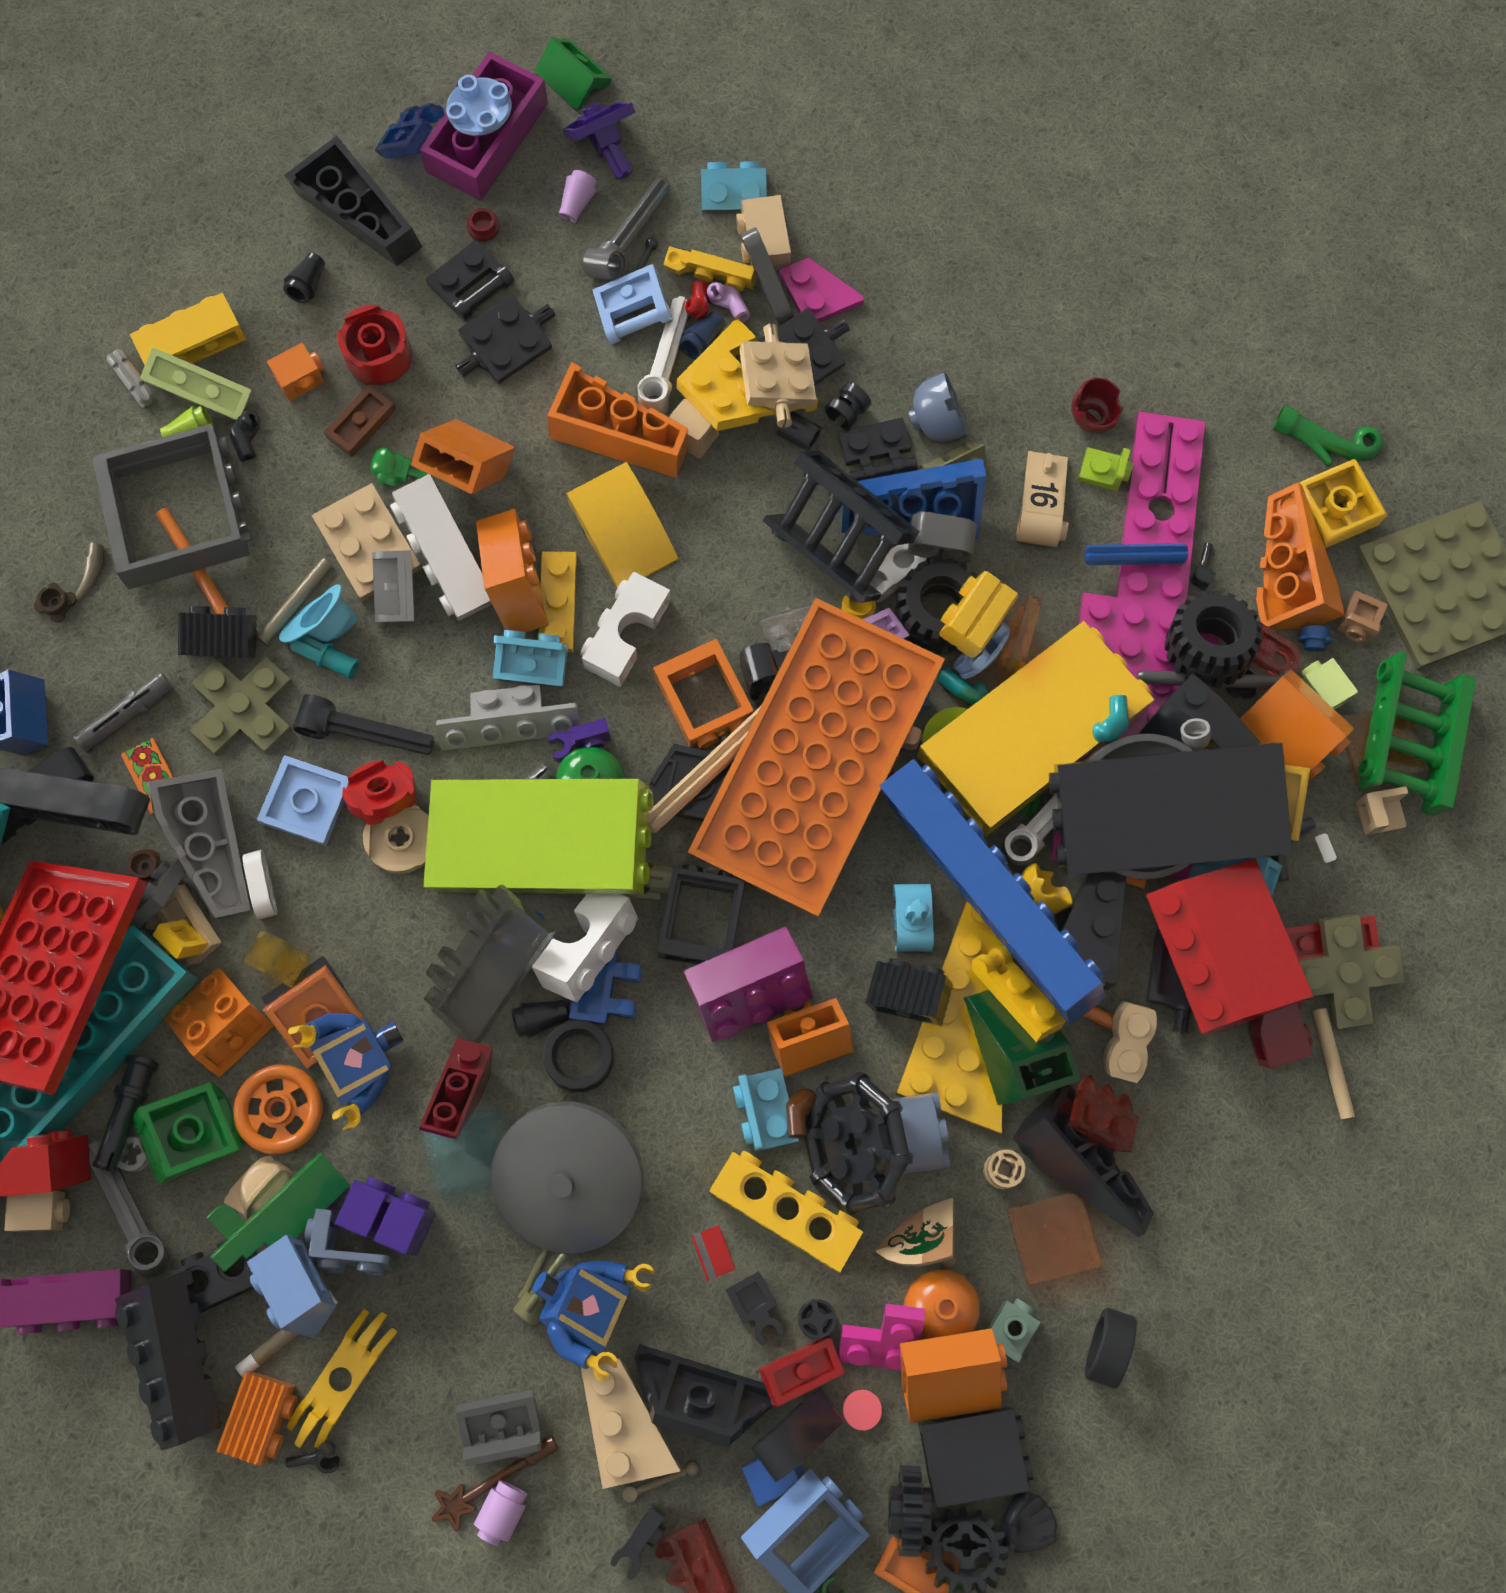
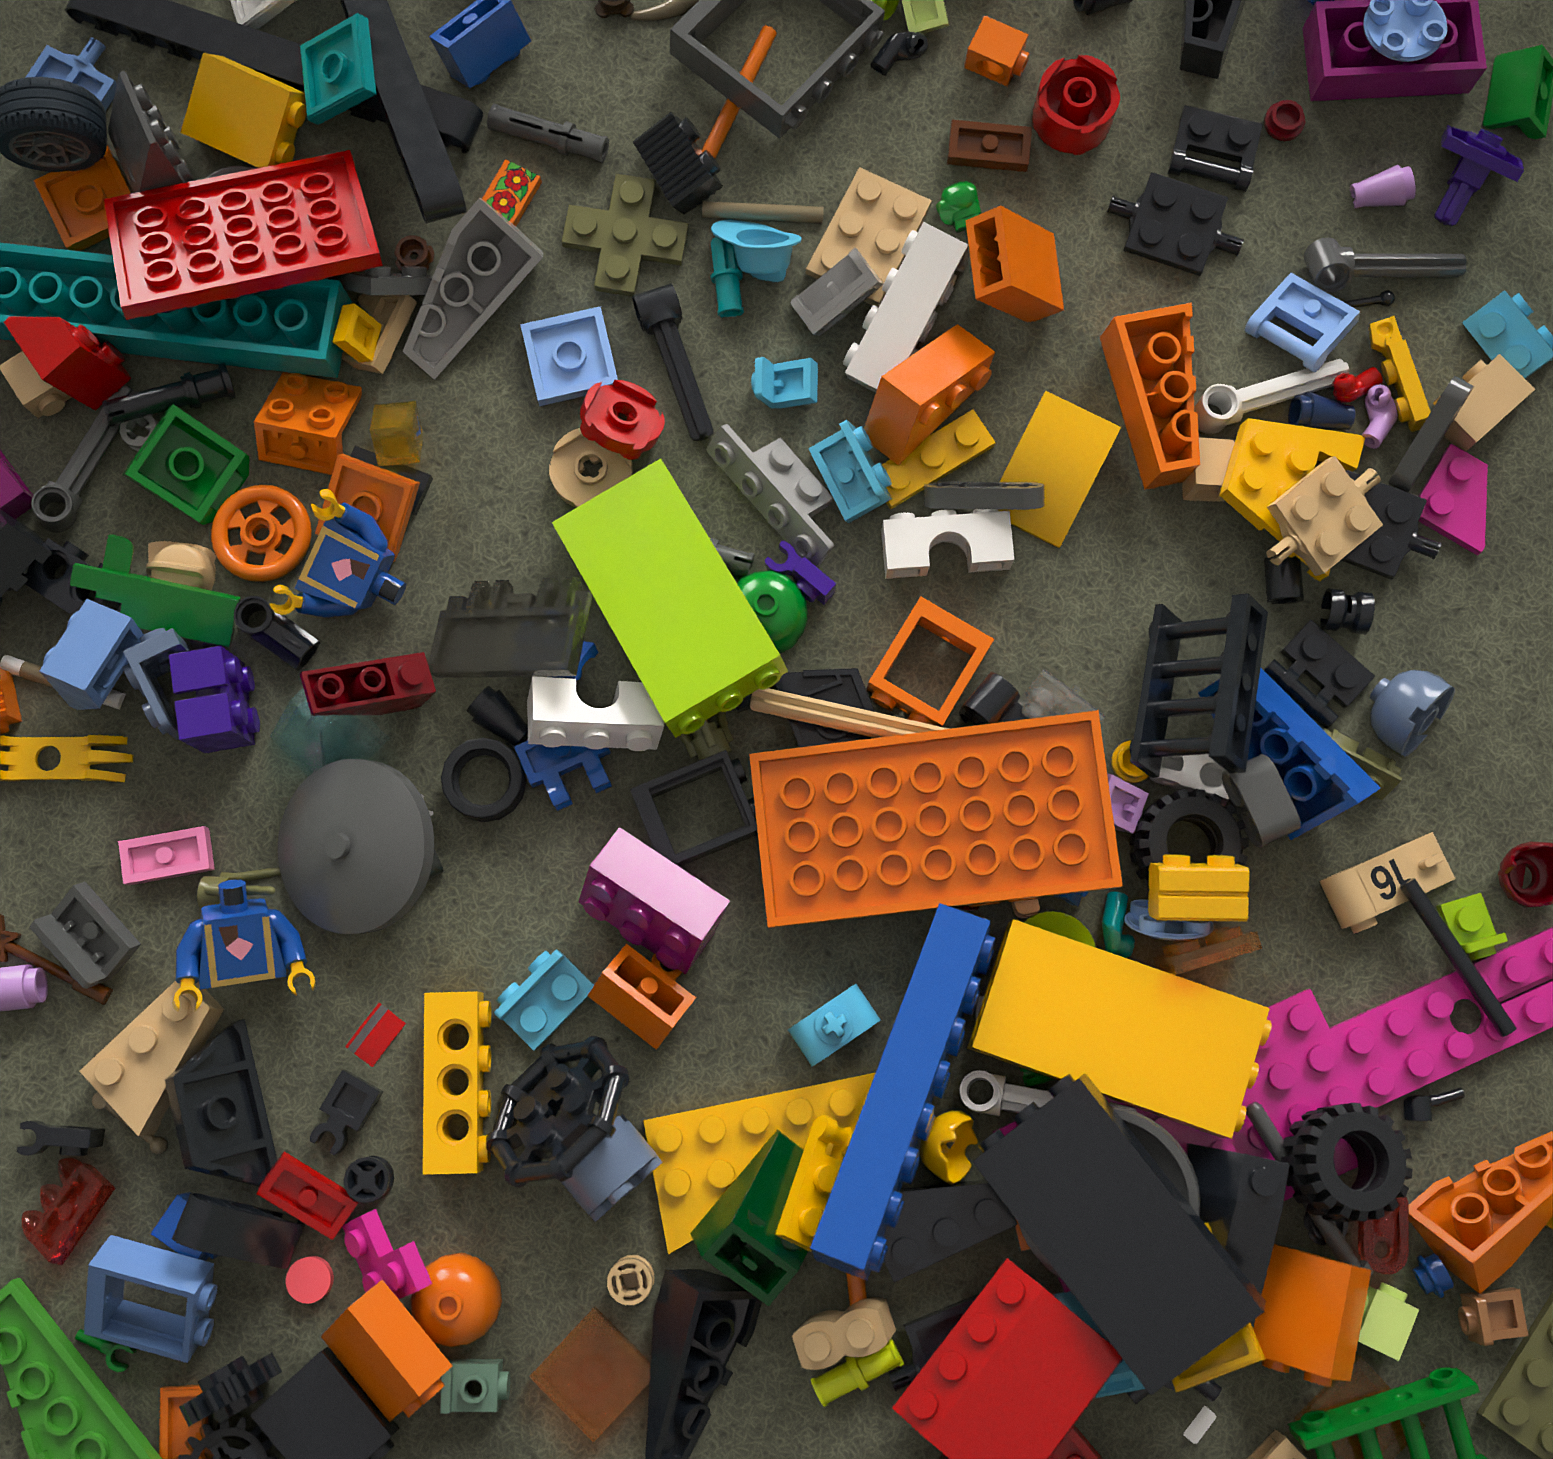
camera: 60 degrees right, 5 degrees up
(259, 884) = (461, 370): white beam -> none
(367, 1142) = (277, 633): none -> black piece
(433, 663) = (786, 382): none -> medium azure bracket
(477, 1330) = (166, 855): none -> bright pink plate
(610, 581) = (984, 495): none -> dark grey beam
(797, 1110) = (562, 1030): reddish brown arm -> none
(909, 991) = (750, 1069): black brick -> none
(923, 1238) = (510, 1238): shield -> none
(1102, 1117) = (749, 1351): clear red plate -> none
(1116, 723) = (1172, 1112): teal arm -> none
(1121, 486) = (1458, 957): none -> black bar
(1136, 554) = (1390, 1020): blue axle -> none
(1160, 1054) = (856, 1373): none -> neon yellow pin
(1196, 733) = (1220, 1207): light grey hinge -> none

